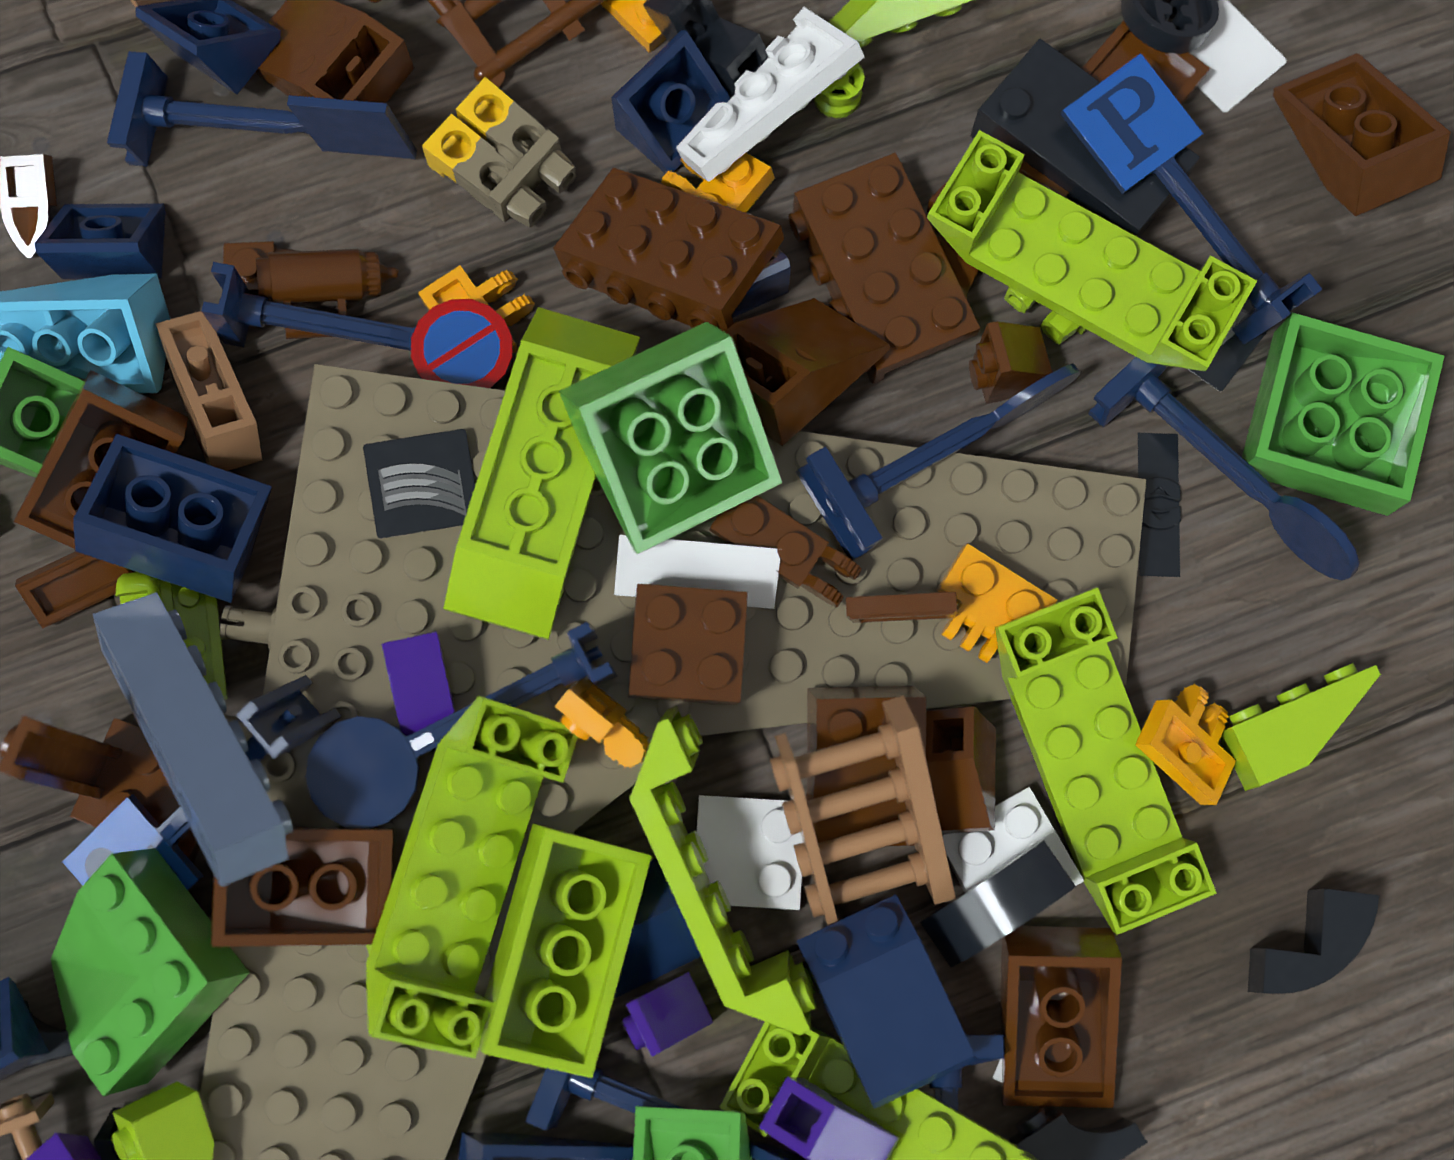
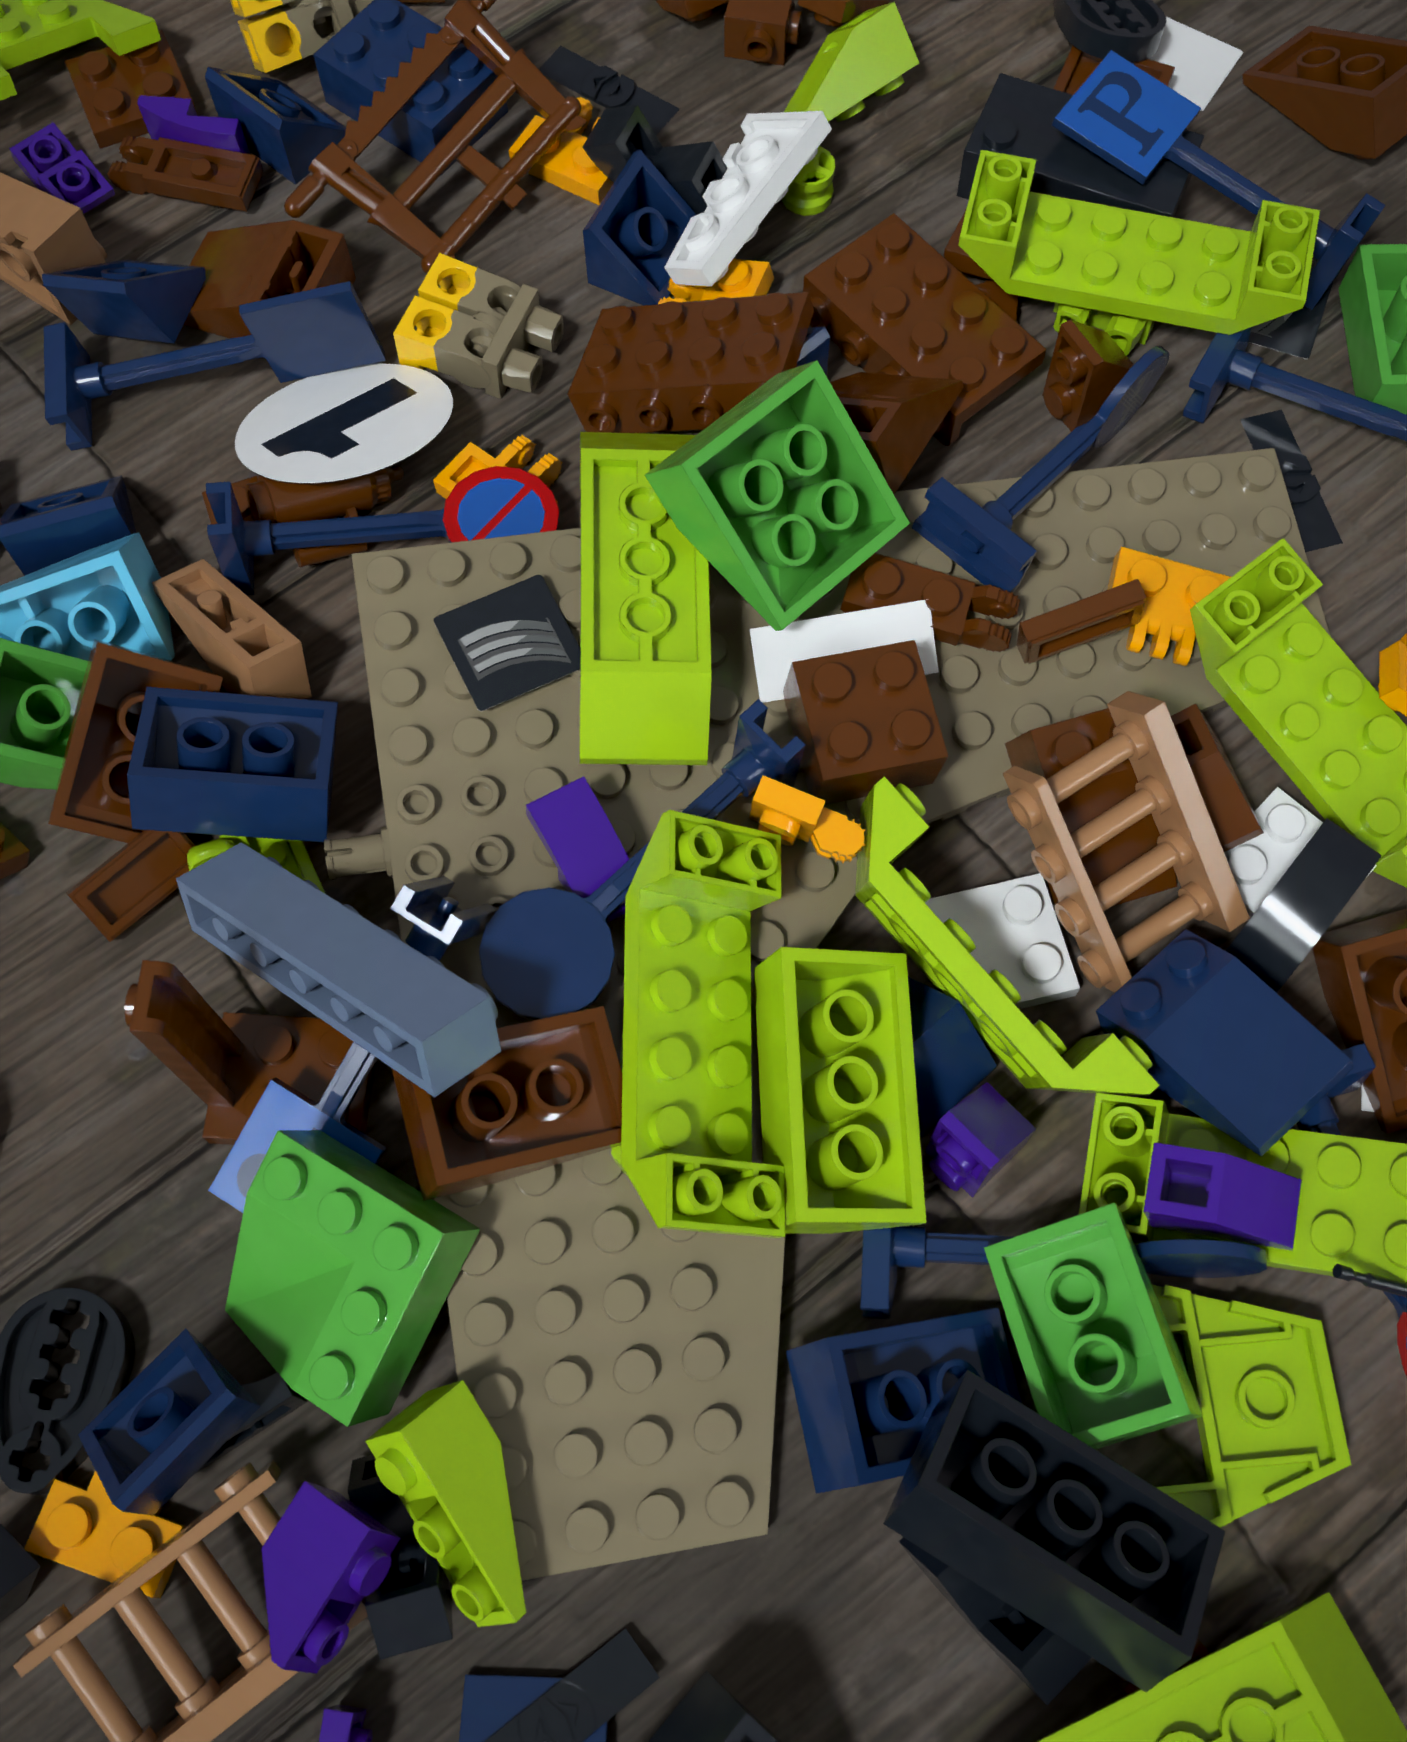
camera: 15 degrees left, 10 degrees down
(356, 219) = (343, 423): none -> white sticker

